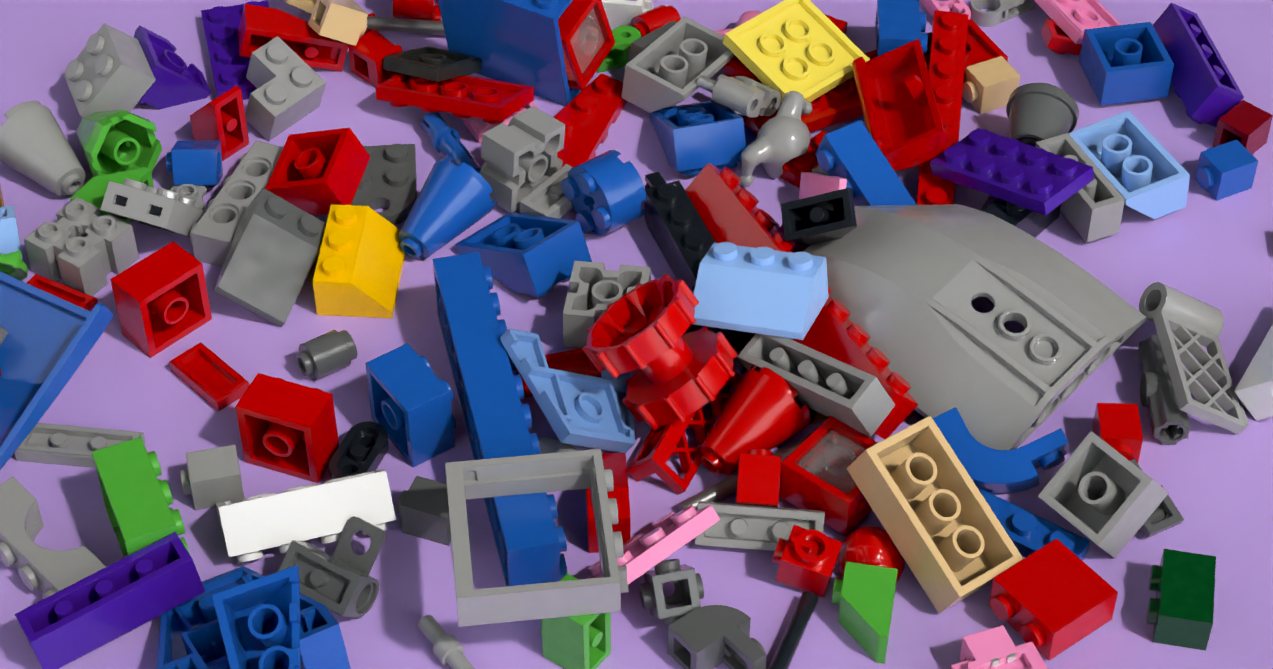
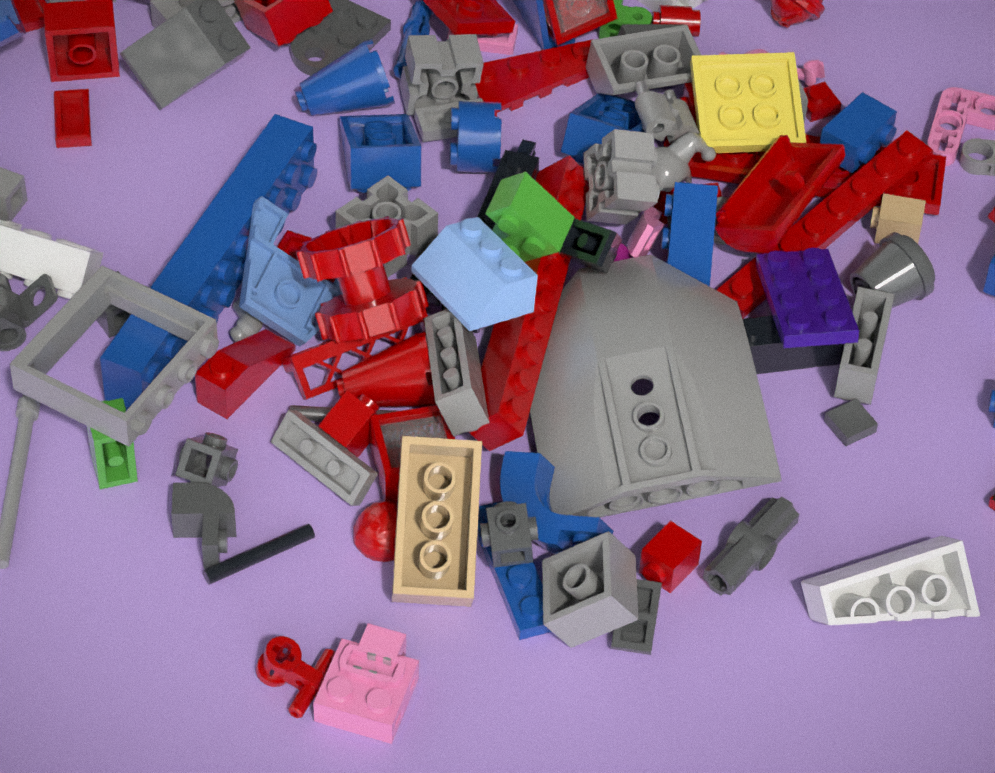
camera: 35 degrees right, 5 degrees up
(287, 427) = (70, 184): red brick -> none
(326, 354) = (160, 147): dark grey brick -> none
(353, 456) = (111, 232): black plate -> none
(358, 264) = (248, 90): yellow slope -> none
(411, 404) = (166, 212): blue brick -> none
(669, 535) = (218, 420): bright pink plate -> none
(754, 217) = (528, 217): none -> bright green brick
(777, 154) = (621, 176): none -> light grey brick
(806, 560) = (326, 501): red brick -> none
(866, 605) = (339, 562): bright green slope -> none
(1002, 485) = (509, 534): none -> dark grey brick
(1052, 599) = (470, 642): red brick -> none
(1120, 254) = (850, 422): none -> dark grey tile
(1135, 164) = (925, 353): light blue slope -> none
(1183, 599) = (575, 707): dark green brick -> none
(1194, 325) = (828, 505): light grey piece -> none

